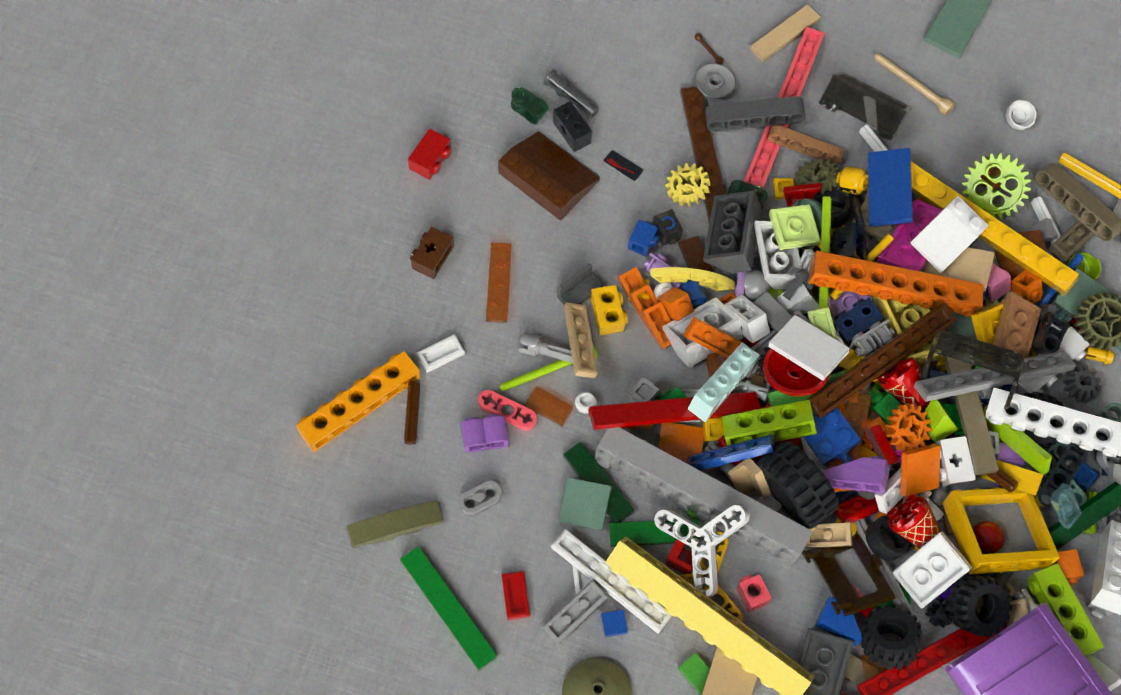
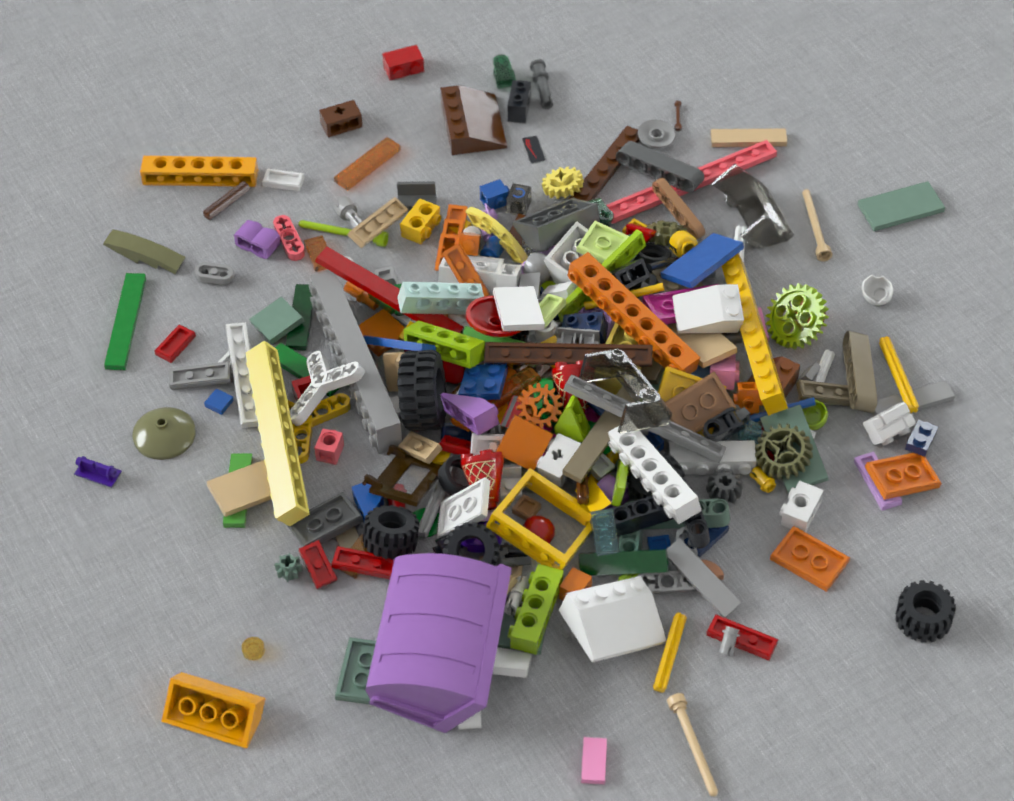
camera: 45 degrees right, 15 degrees down
(801, 276) = (562, 280): dark grey piece -> none

